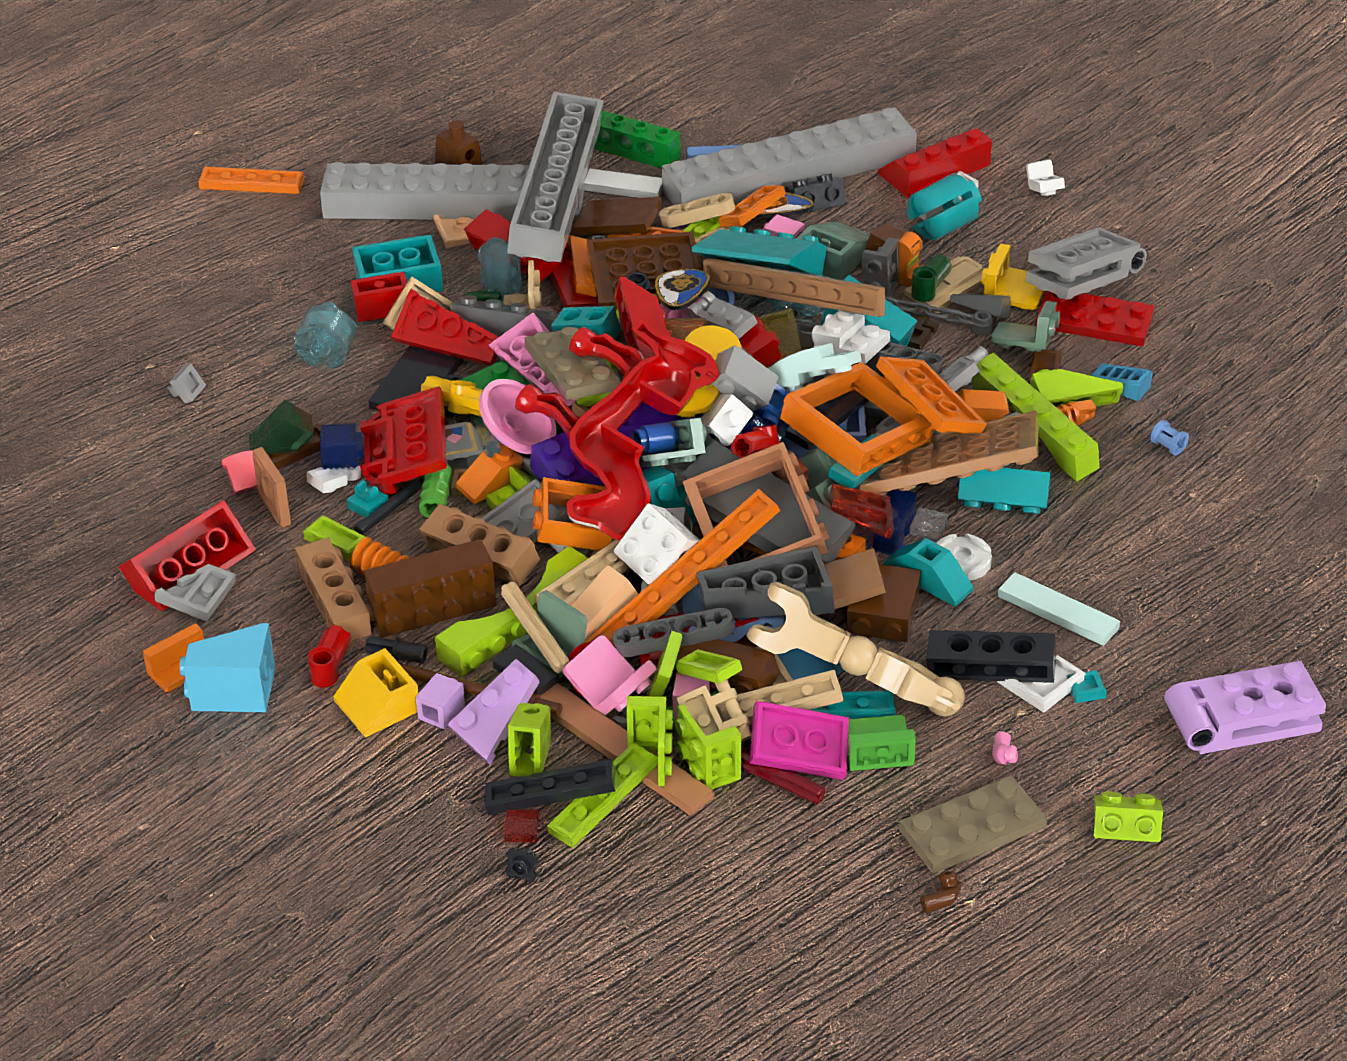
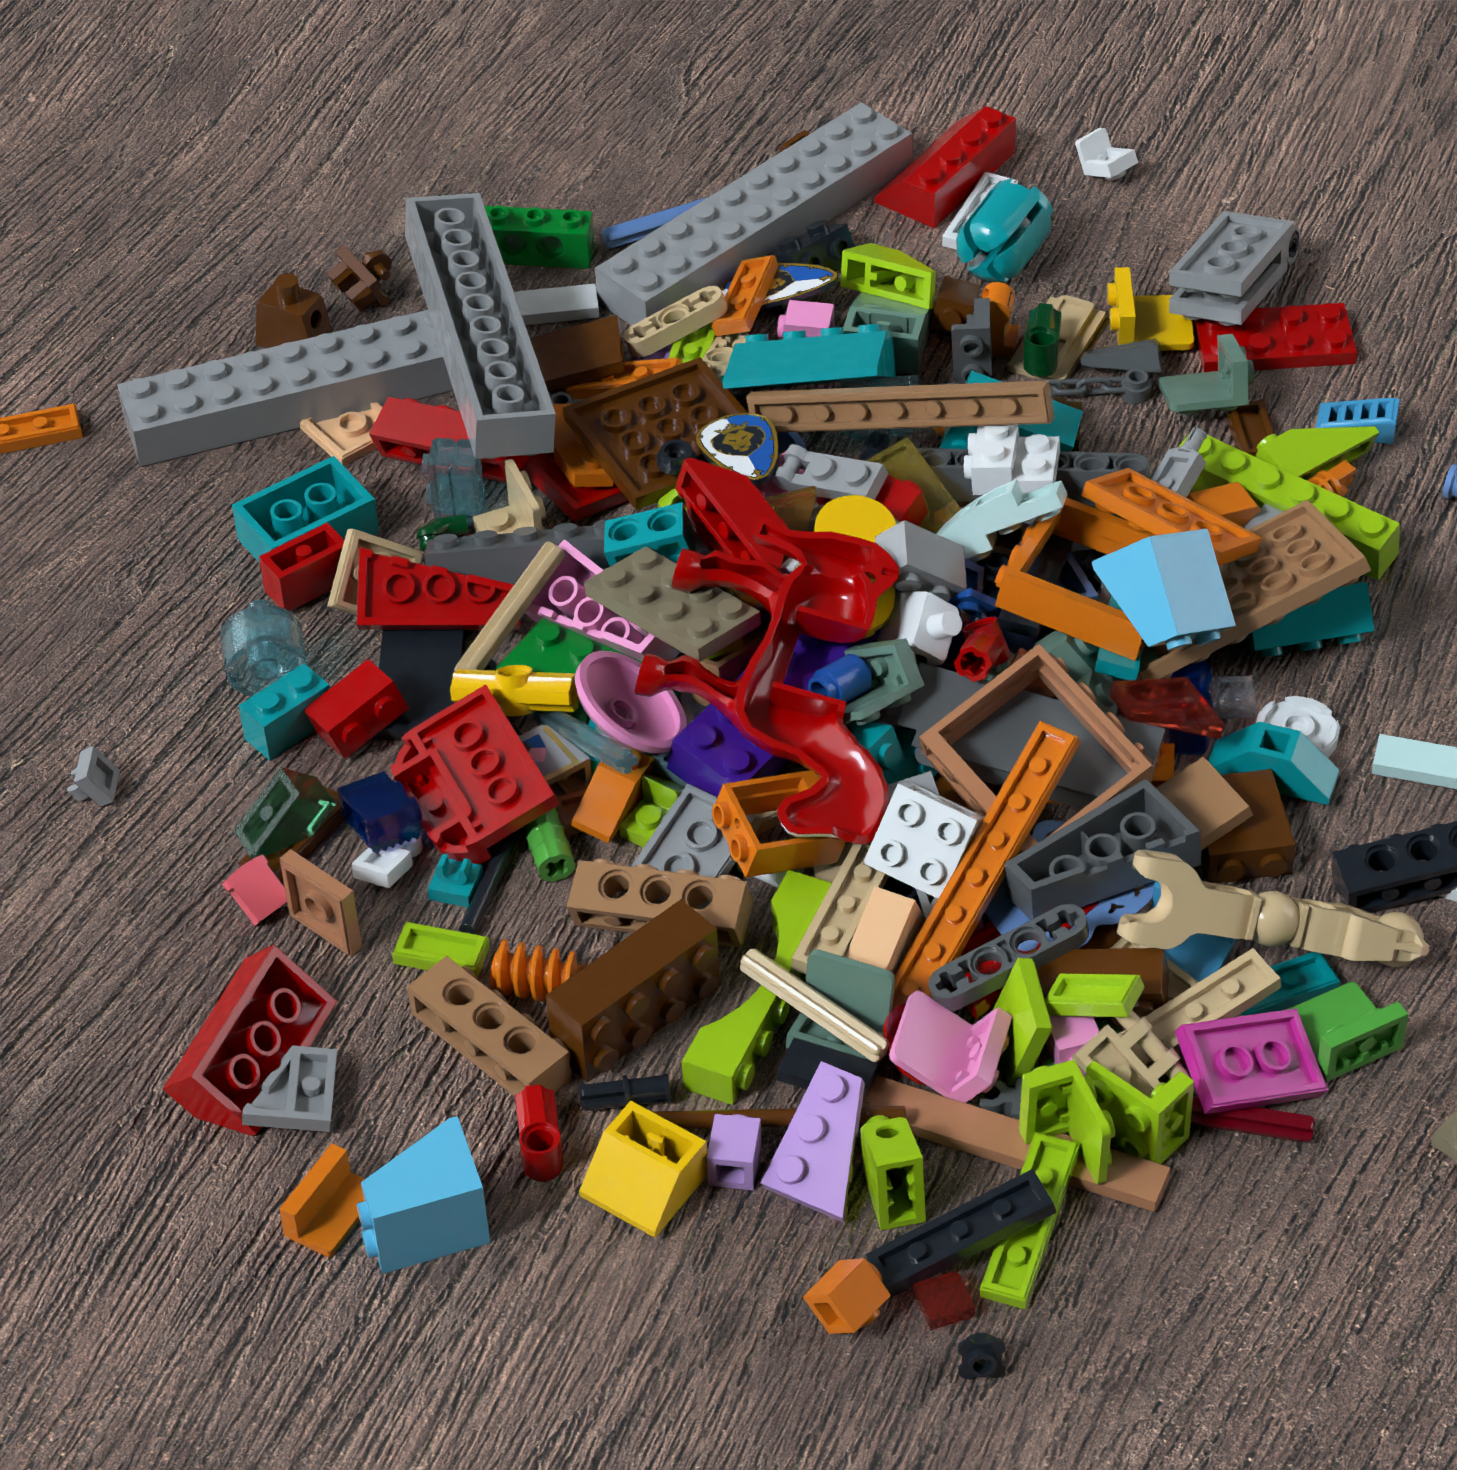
camera: 20 degrees left, 5 degrees up
(321, 376) = (276, 715): none -> teal brick
(361, 384) = (356, 708): none -> red brick
(458, 803) = (848, 1296): none -> orange brick
(484, 346) = (512, 608): none -> tan axle
(517, 141) = (367, 274): none -> reddish brown hips
(848, 213) = (888, 275): none -> lime slope
(889, 430) = (1169, 588): none -> medium azure slope

